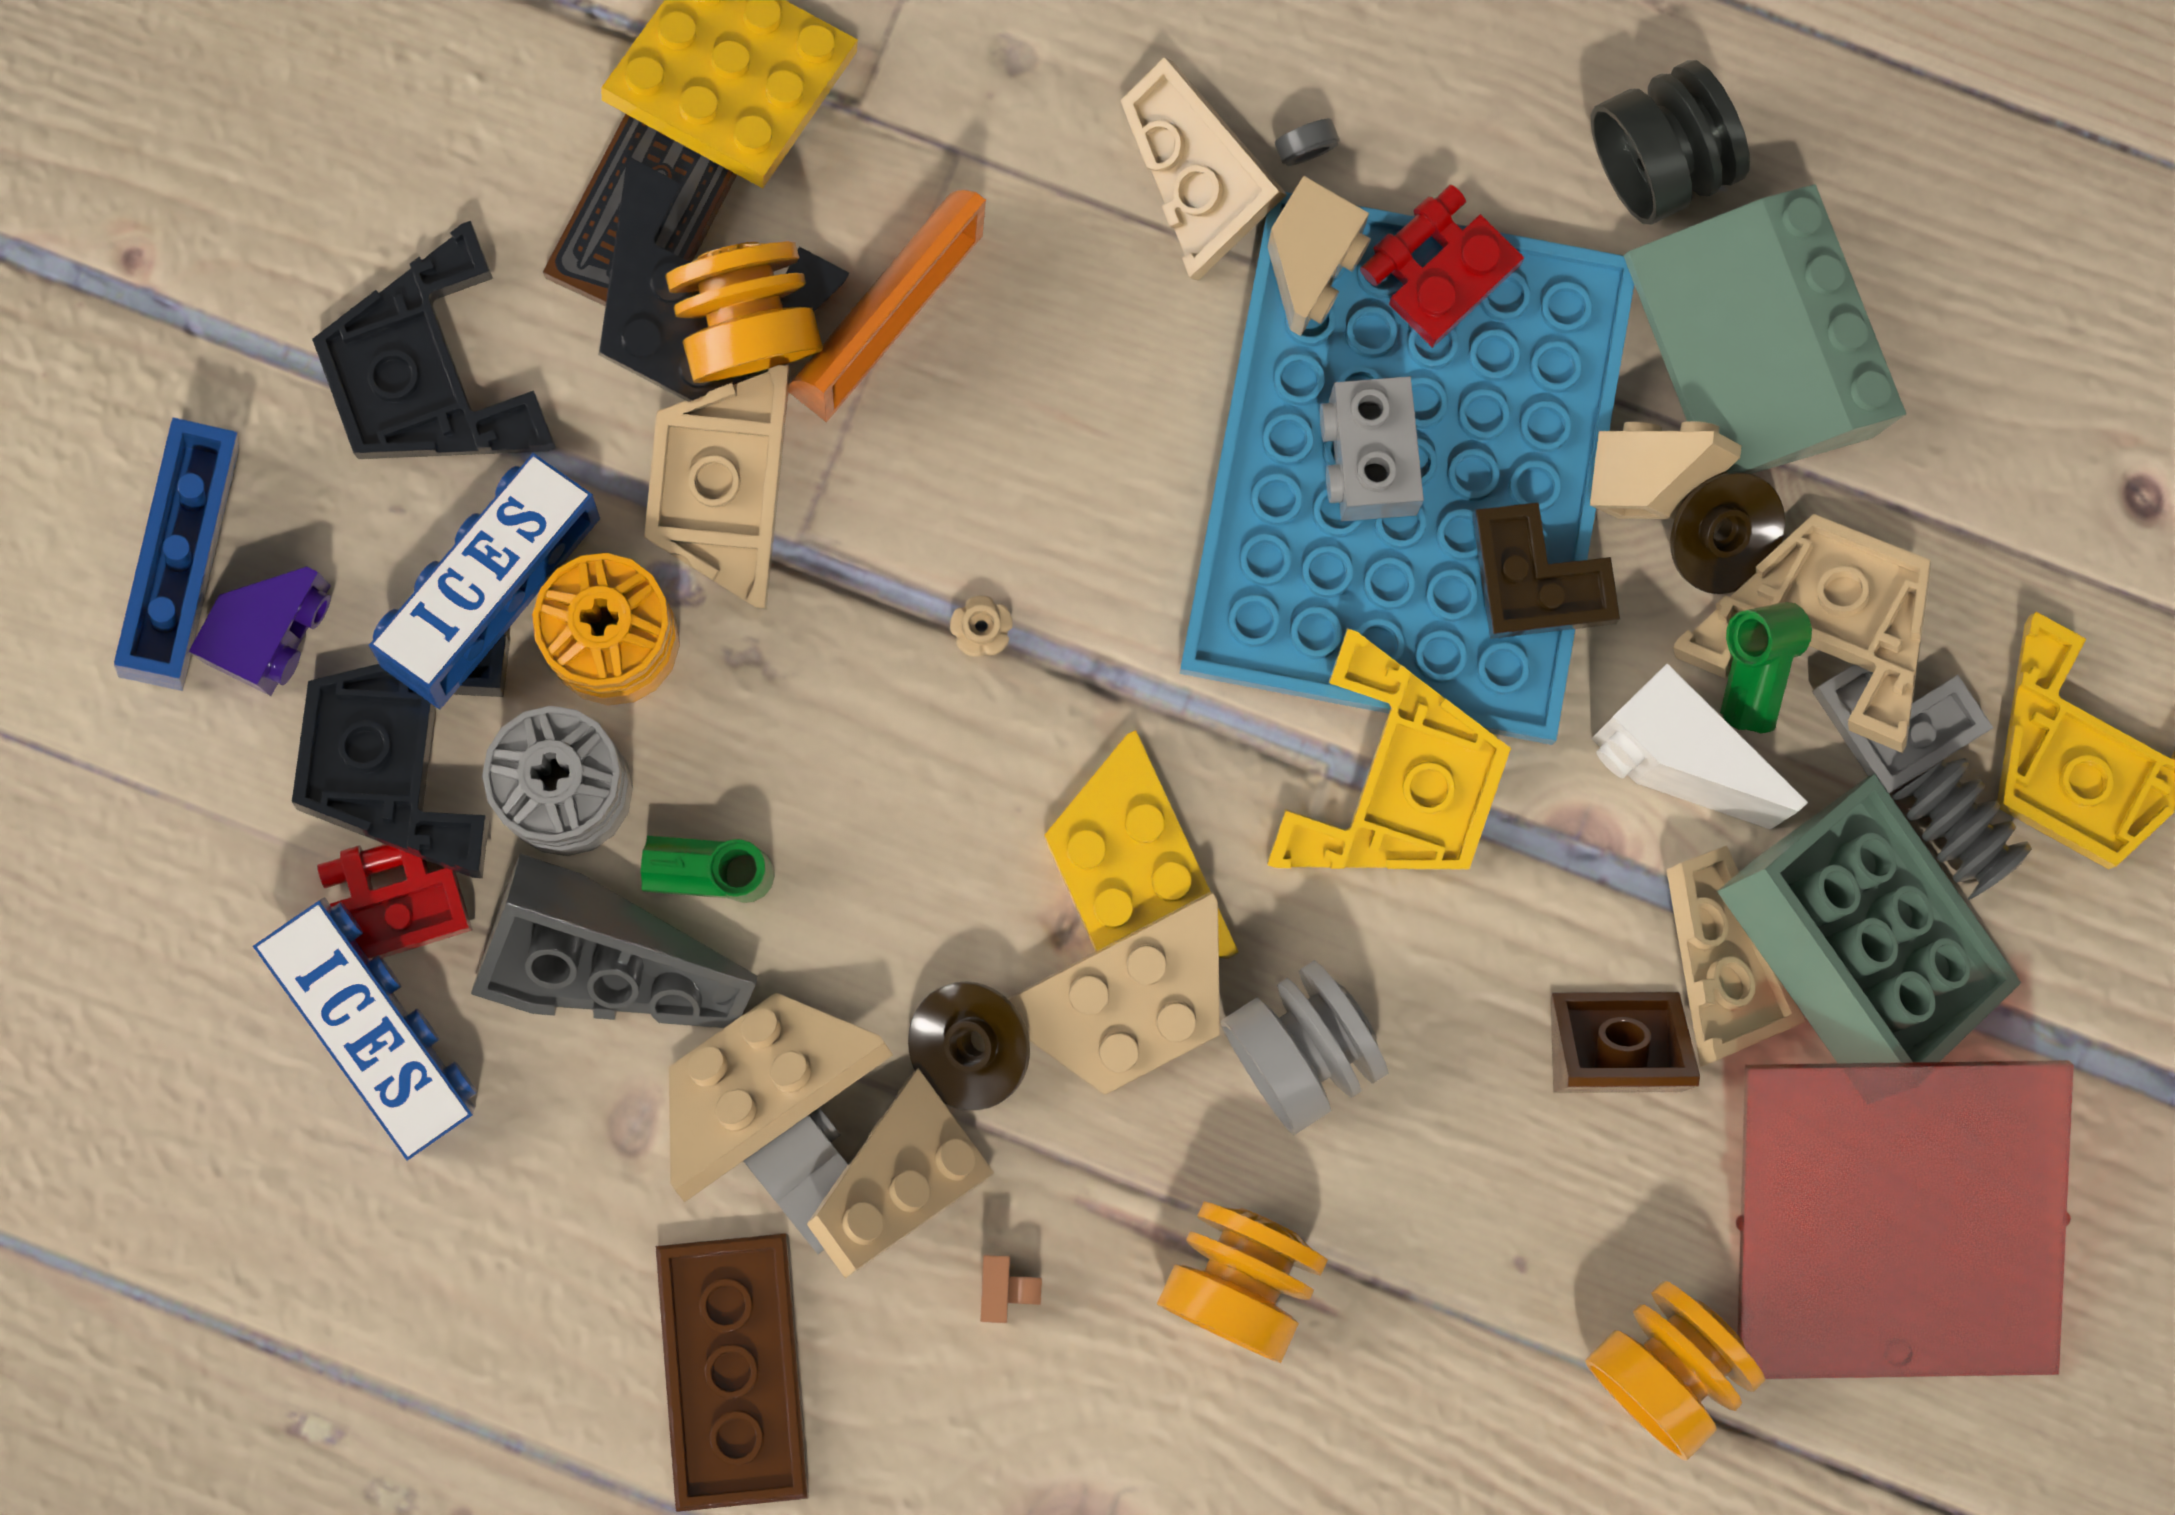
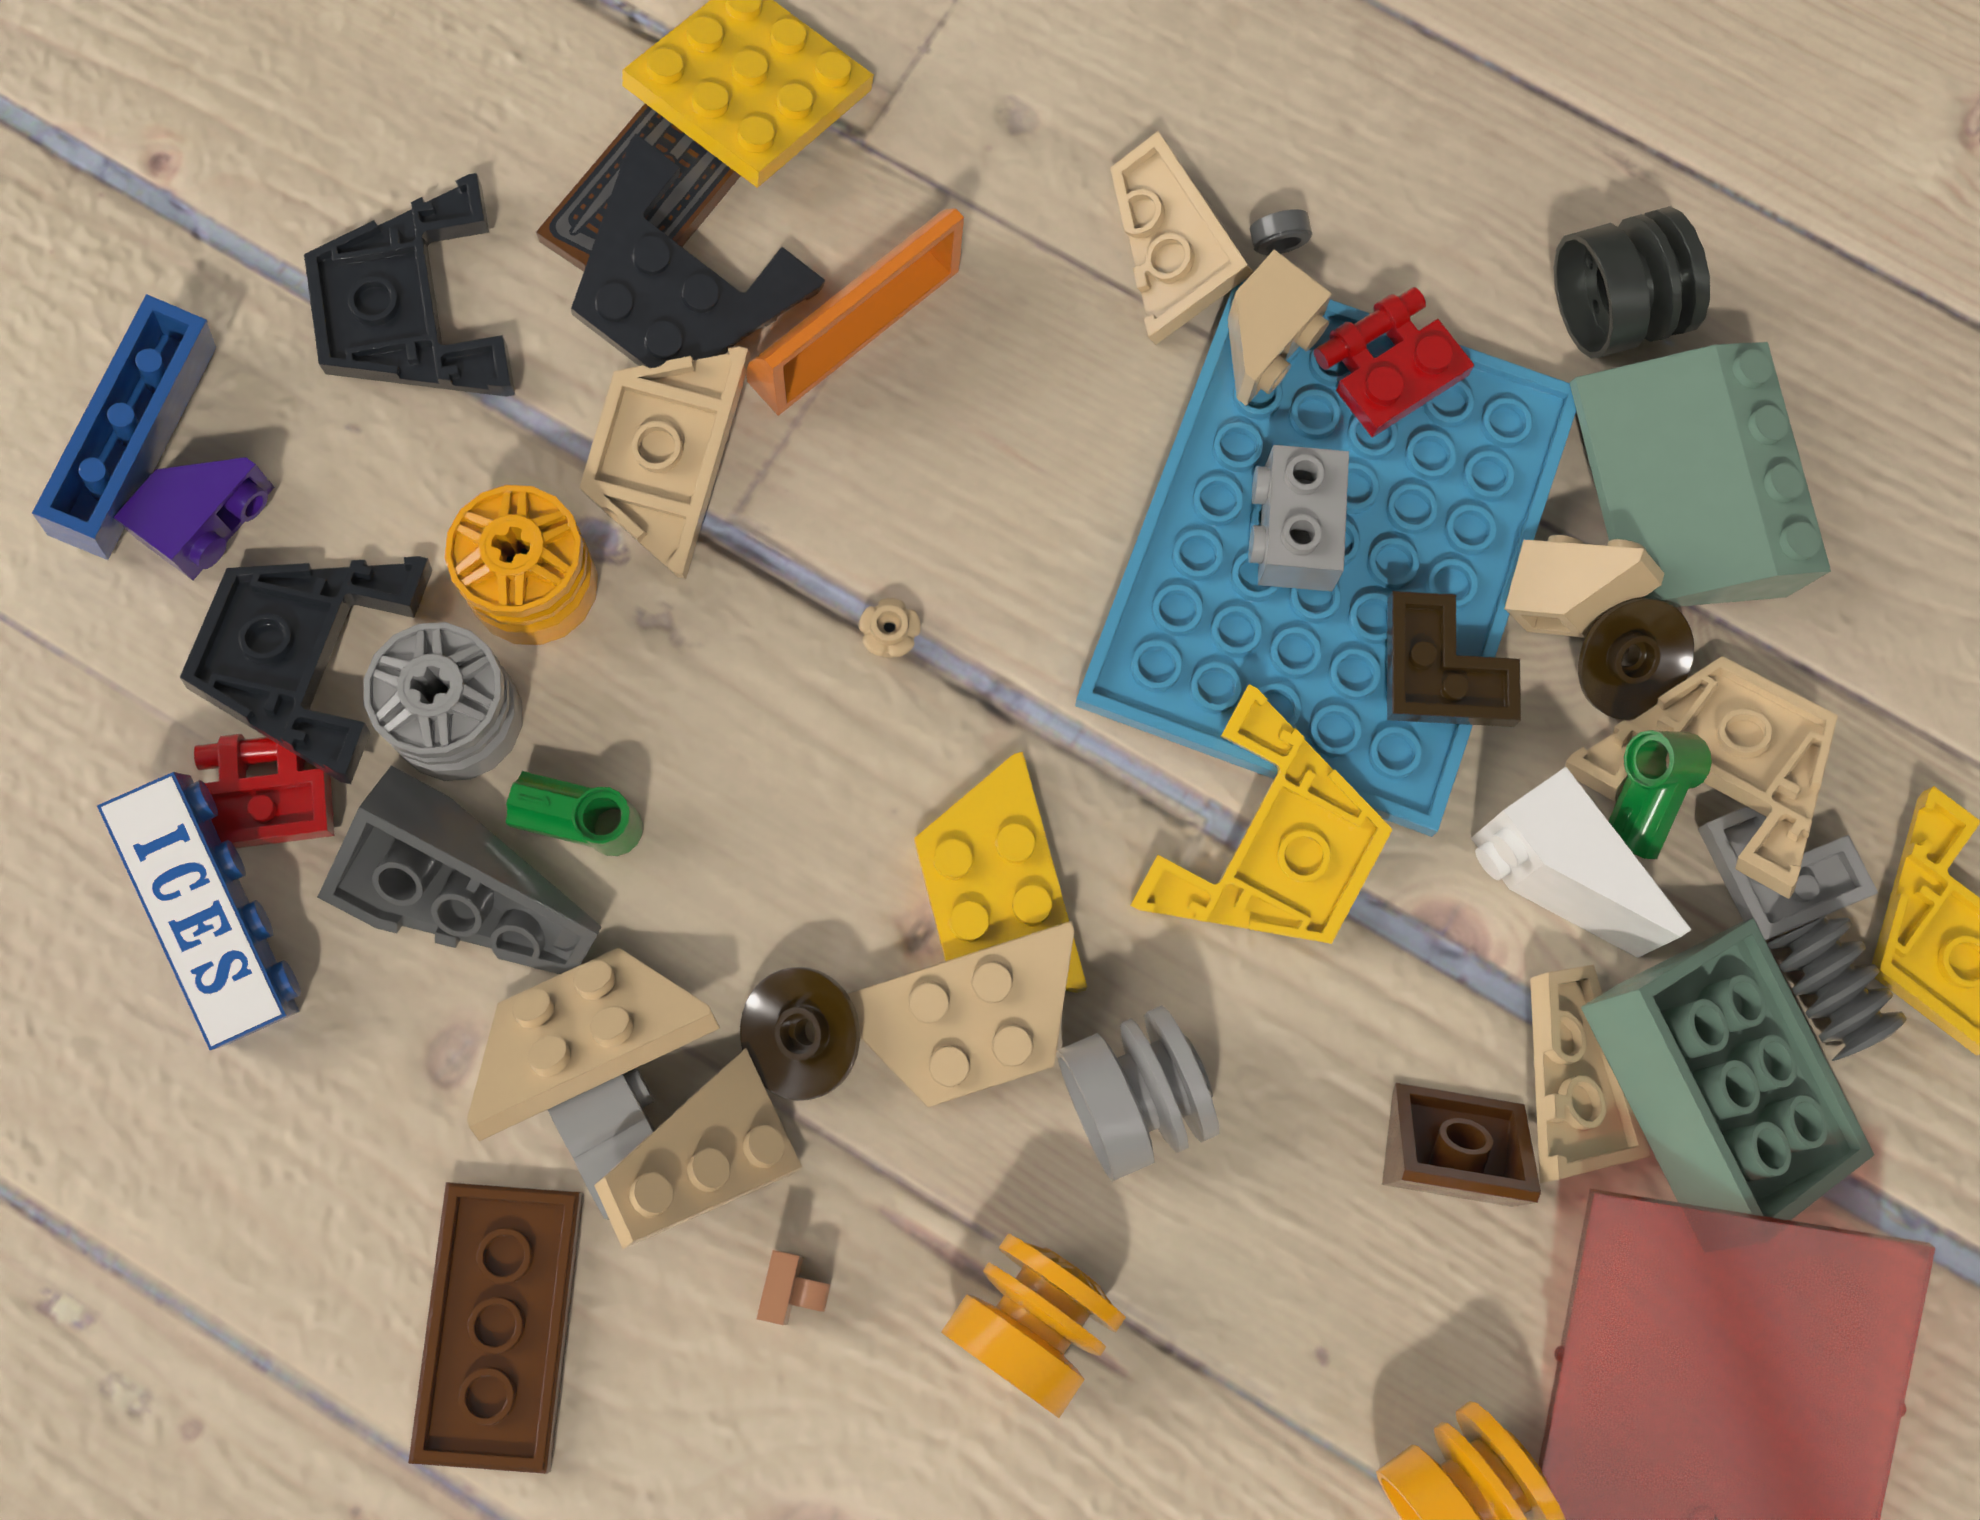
camera: 10 degrees right, 5 degrees down
(484, 580) = (410, 501): brick -> none
(743, 311) = (711, 283): light orange wheel -> none

